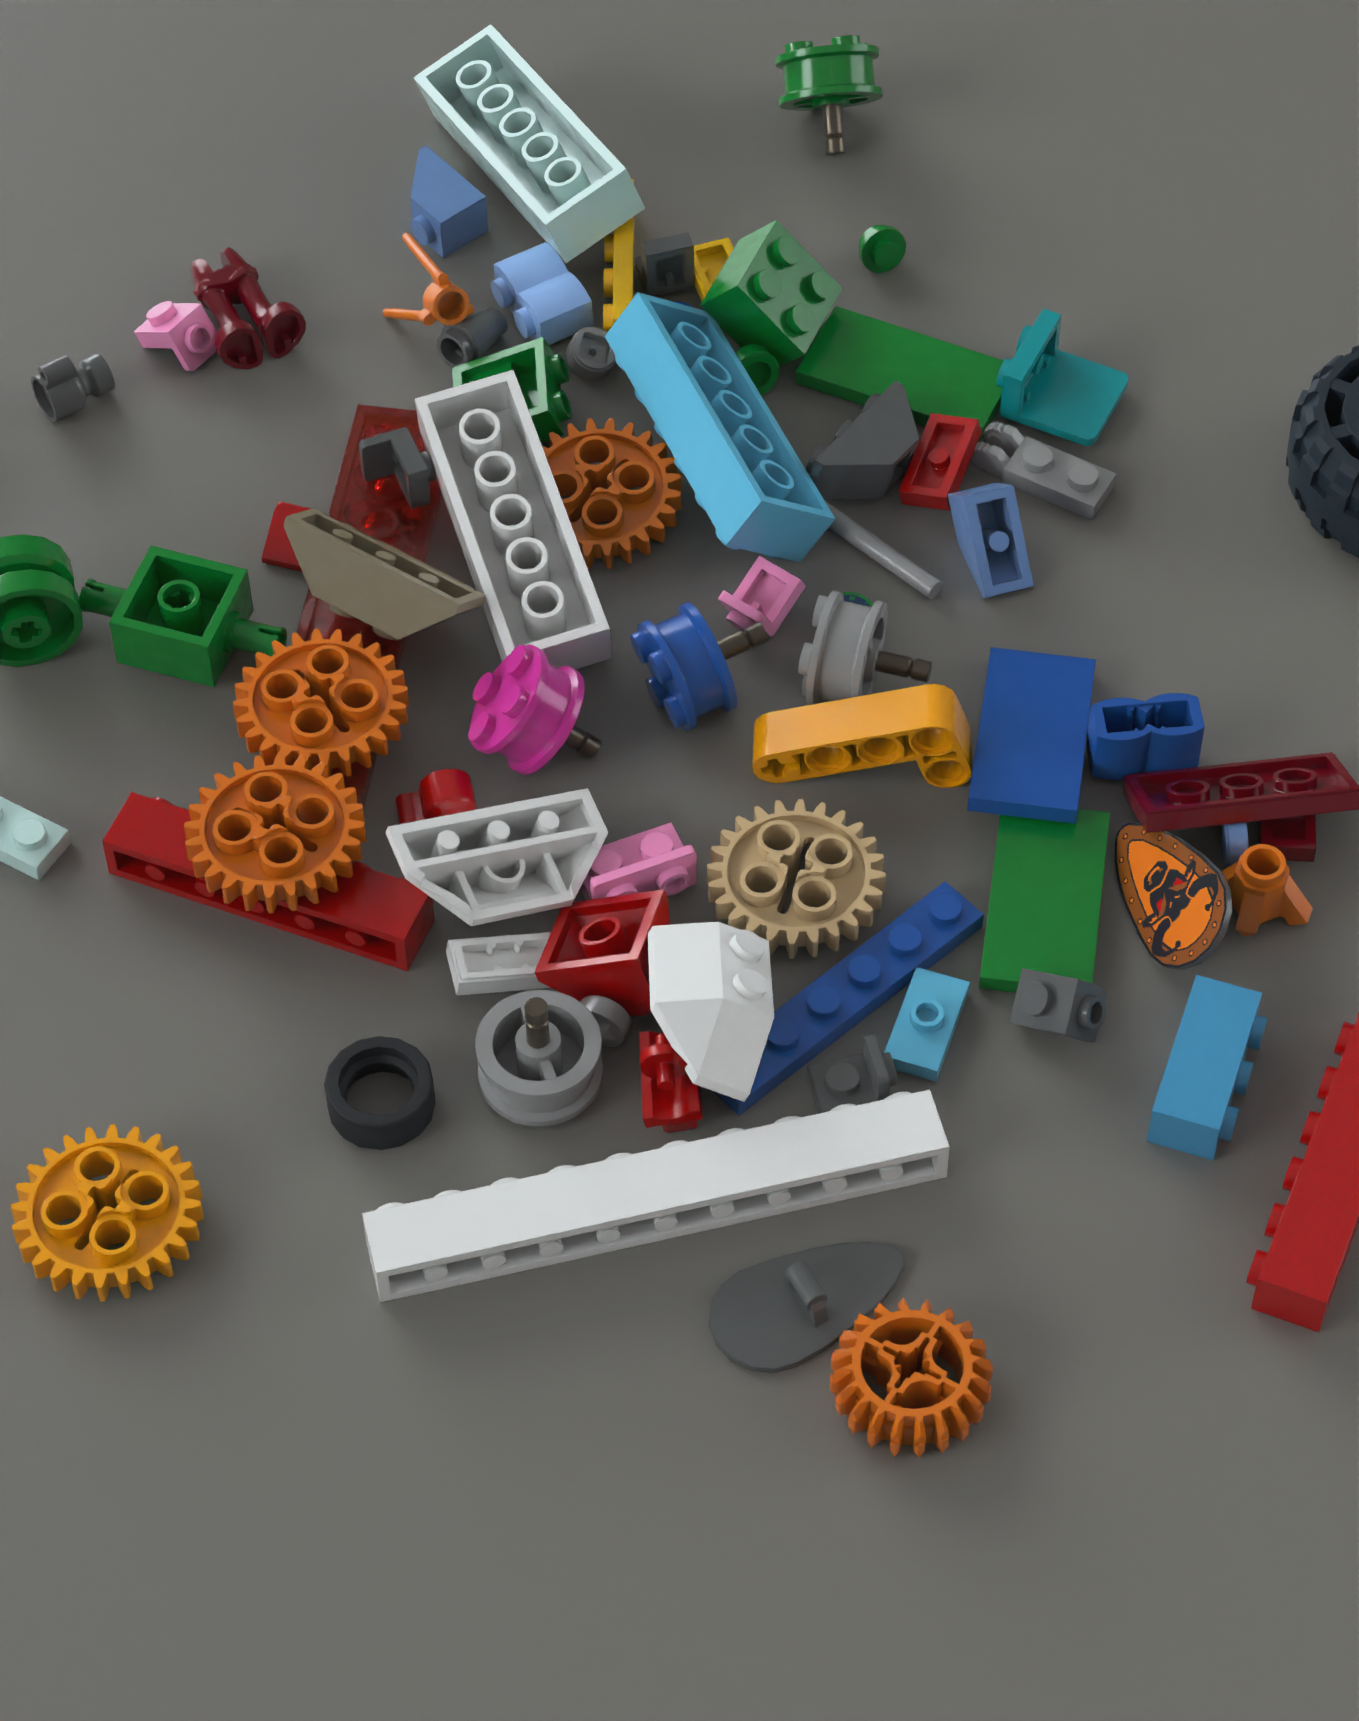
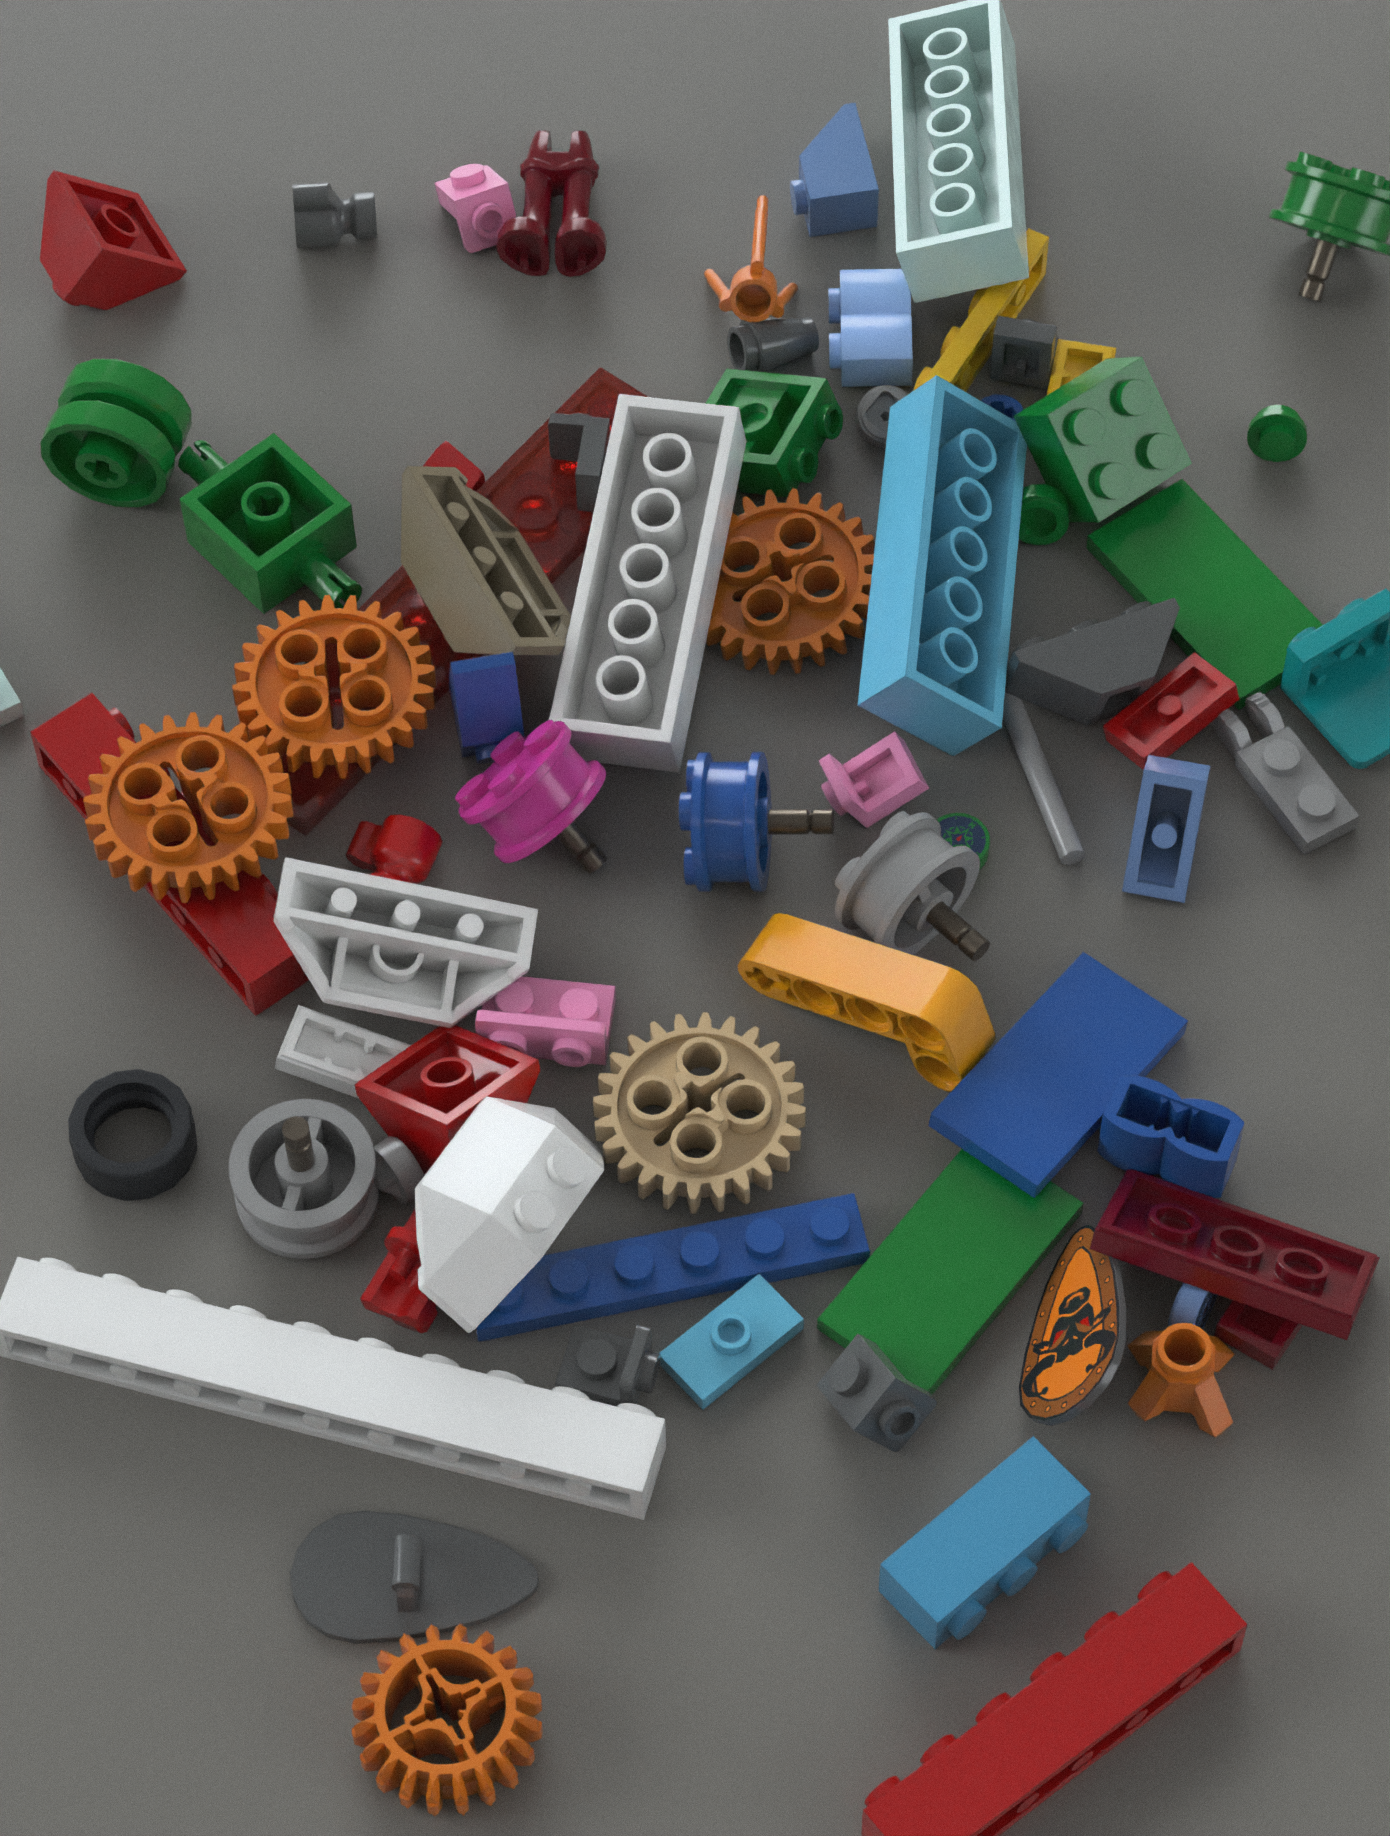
camera: 30 degrees right, 5 degrees up
(445, 667) = (485, 703): none -> blue slope

